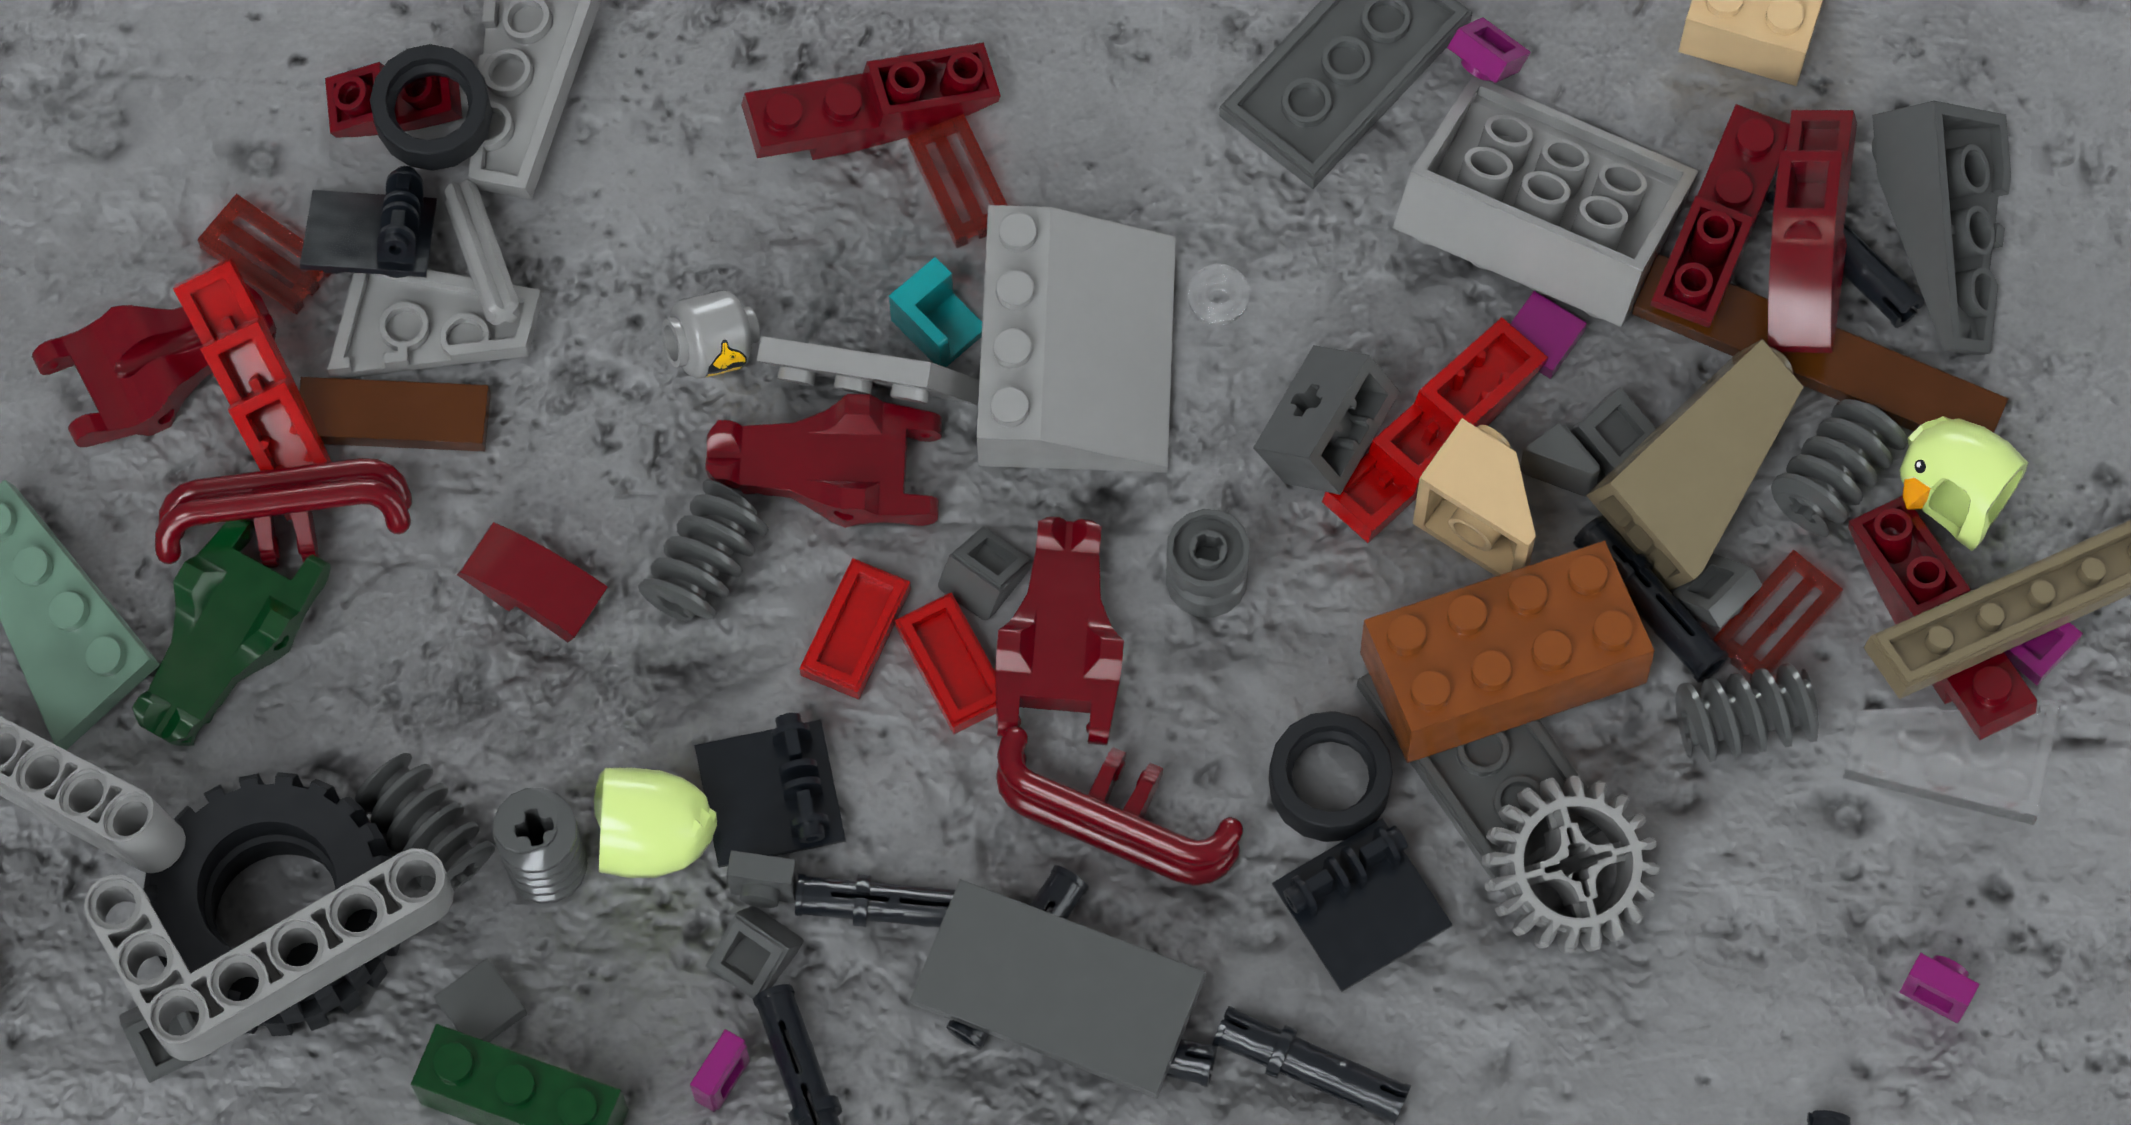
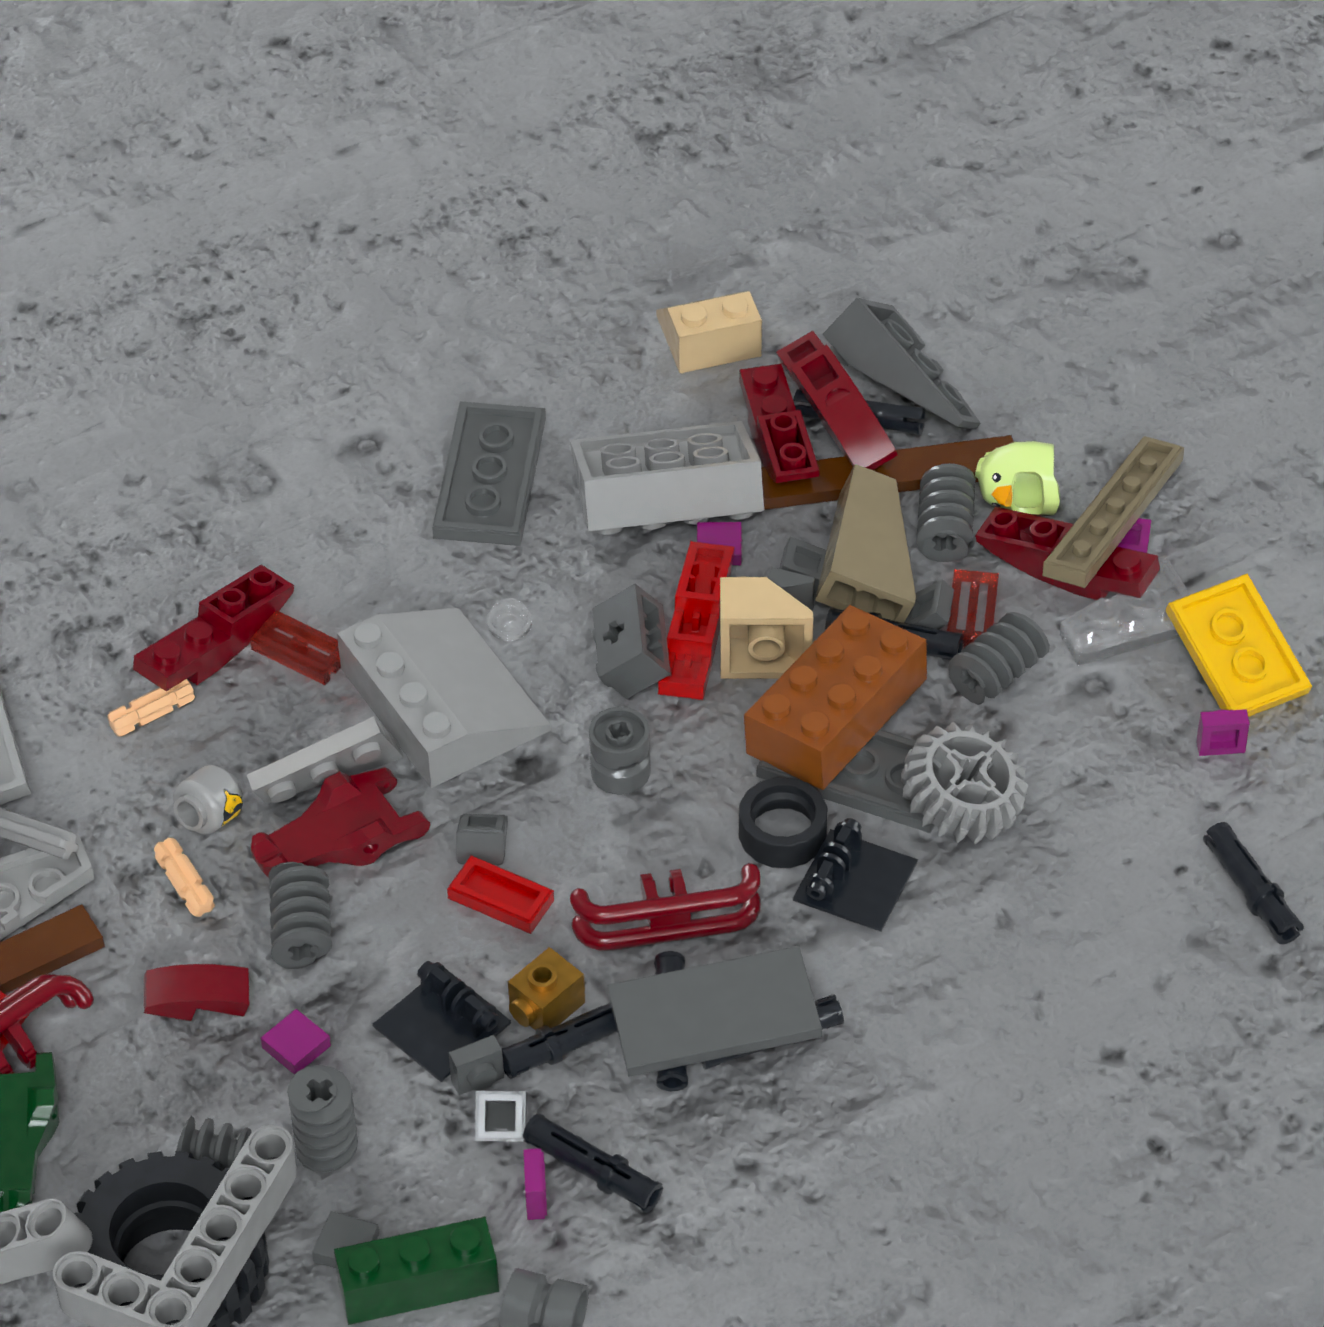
camera: 35 degrees left, 20 degrees down
(599, 713) = (295, 1041): none -> magenta tile
(623, 417) = (184, 877): none -> light nougat axle
(650, 822) = (388, 1069): yellowish green piece -> none
(734, 161) = (149, 707): none -> light nougat axle
(855, 628) = (424, 909): red tile -> none
(901, 832) = (546, 991): none -> pearl gold brick
(934, 315) = (330, 714): teal panel -> none
(1060, 640) = (560, 842): dark red animal -> none
(1311, 1064) = (907, 974): black pin -> none
(1488, 51) = (571, 422): magenta plate -> none
(2049, 883) = (1238, 647): none -> yellow tile

